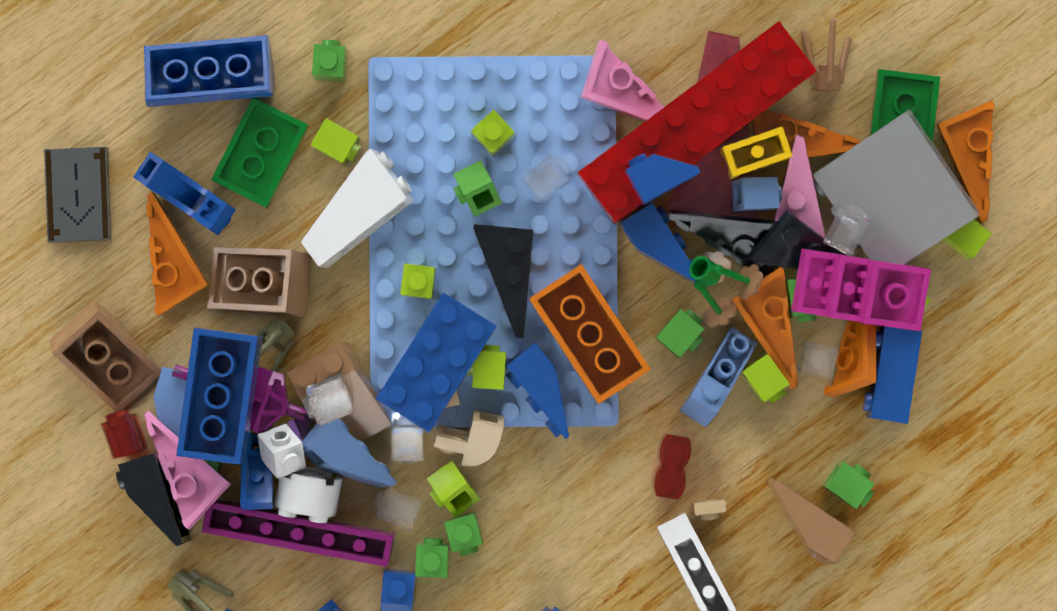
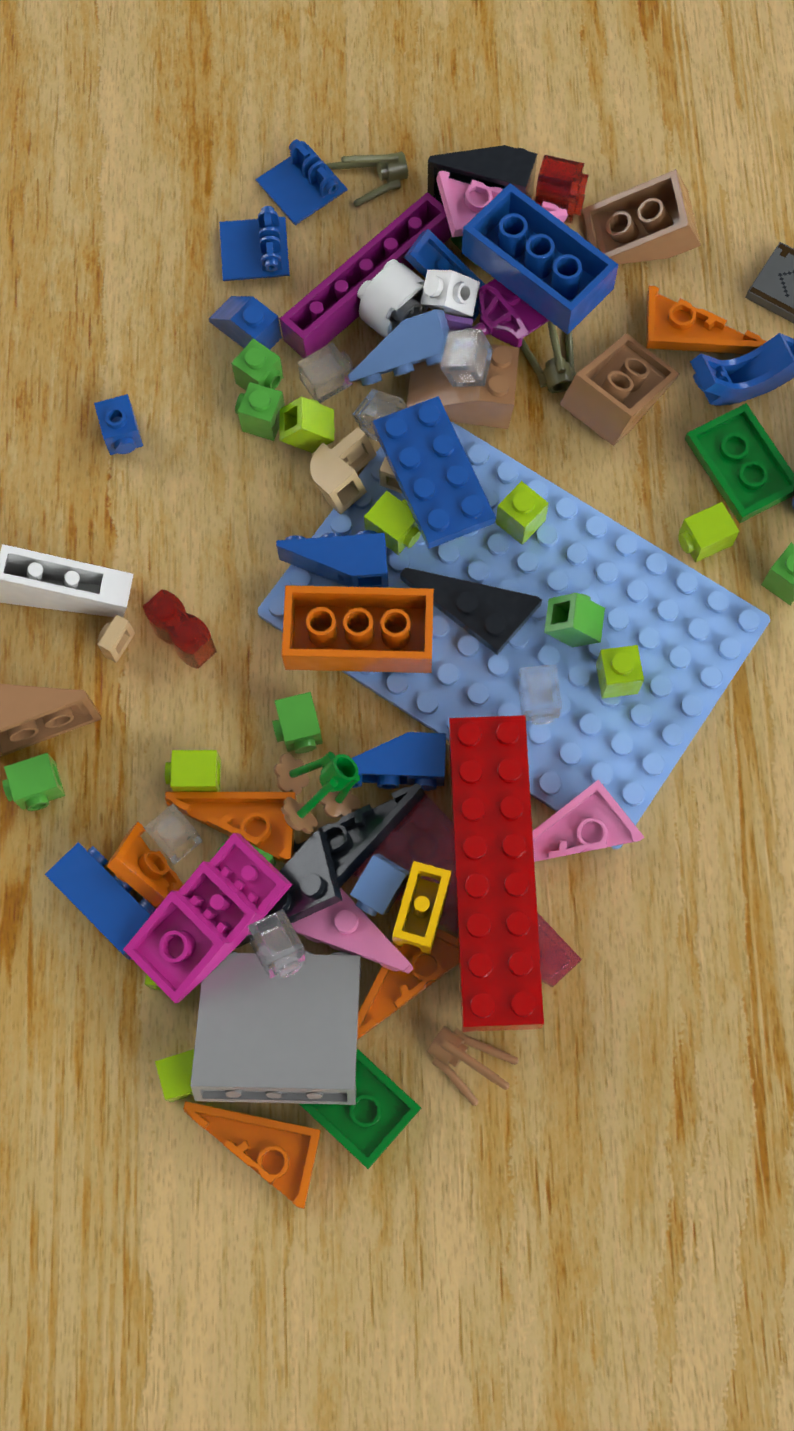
camera: 125 degrees right, 15 degrees down
(358, 209) = (630, 508): white slope -> none
(657, 175) = (467, 779): blue slope -> none
(718, 377) = (230, 733): medium blue slope -> none

